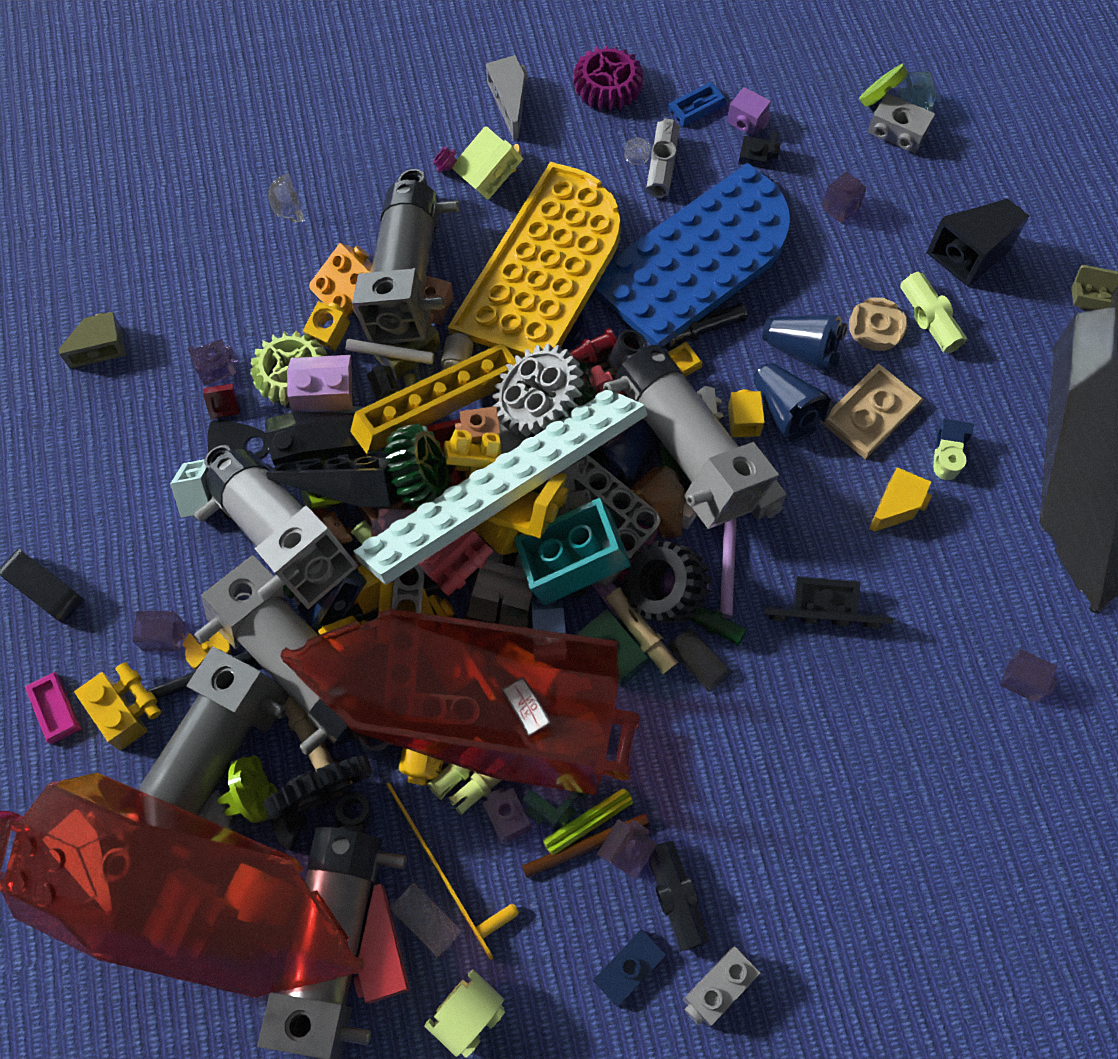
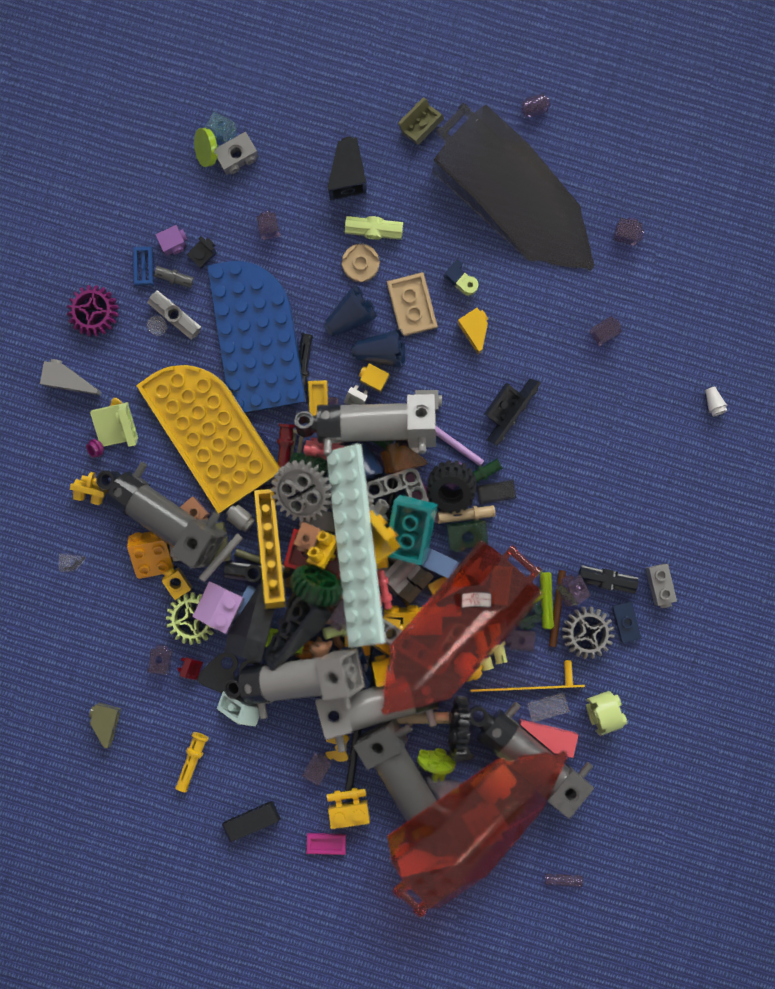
camera: 60 degrees left, 20 degrees up
(104, 465) = (193, 753): none -> yellow pin
(387, 171) = (88, 485): none -> yellow hips
(592, 886) = (580, 636): none -> light grey gear
(707, 137) = (173, 277): none -> dark grey pin
(1049, 905) = (715, 402): none -> white cone

